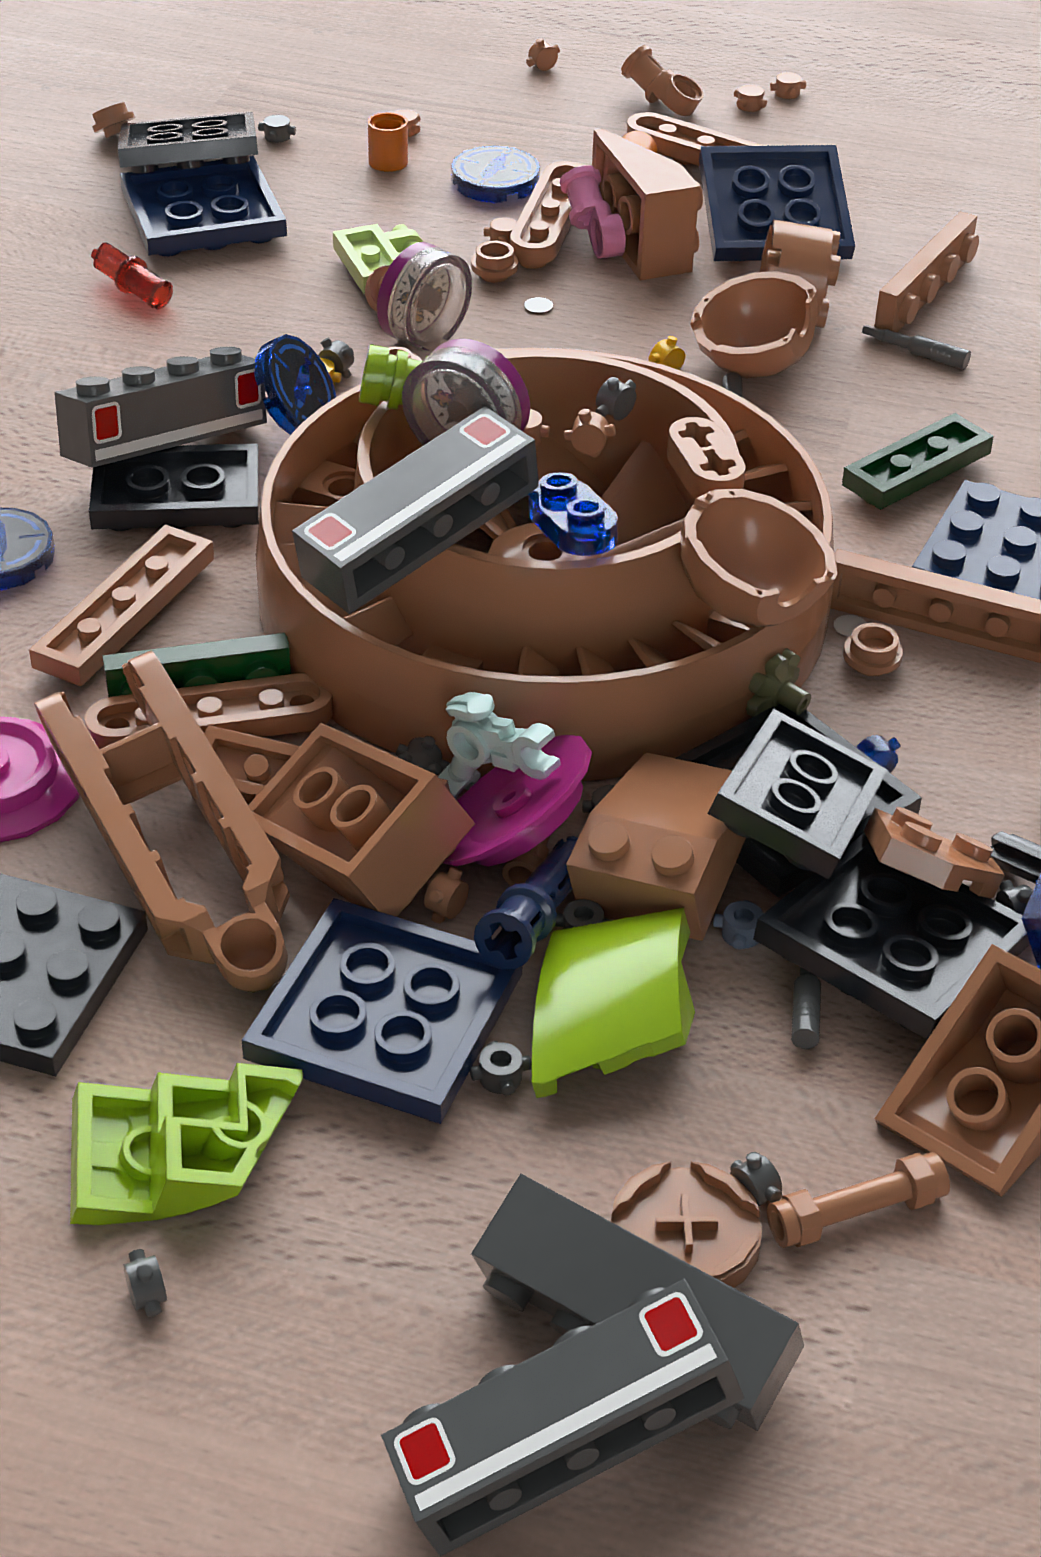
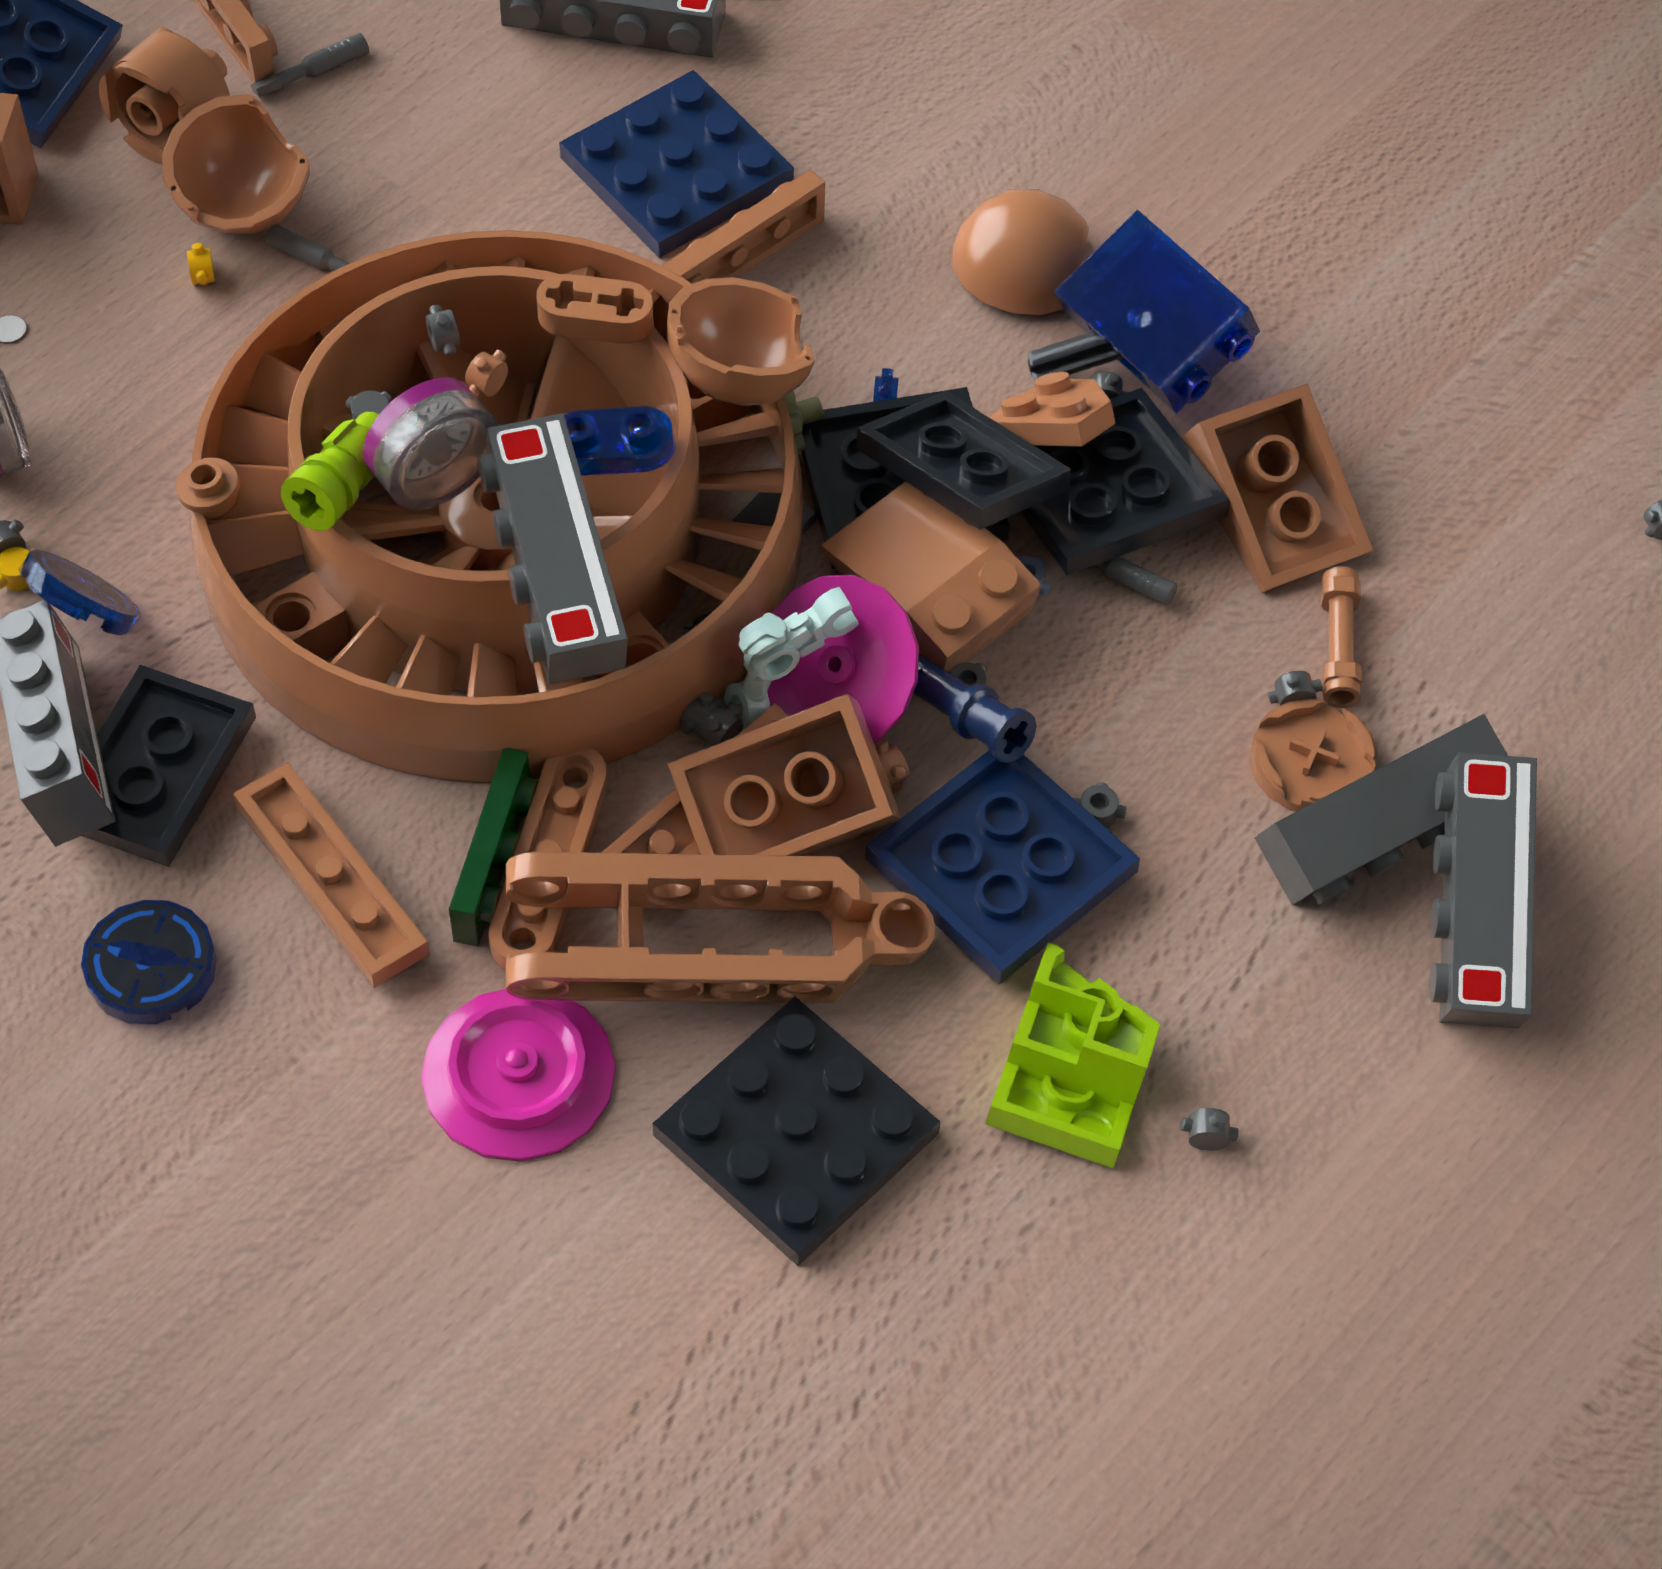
camera: 65 degrees left, 15 degrees up
(610, 996) = (1085, 692): lime slope -> none
(917, 461) = (508, 160): dark green plate -> none

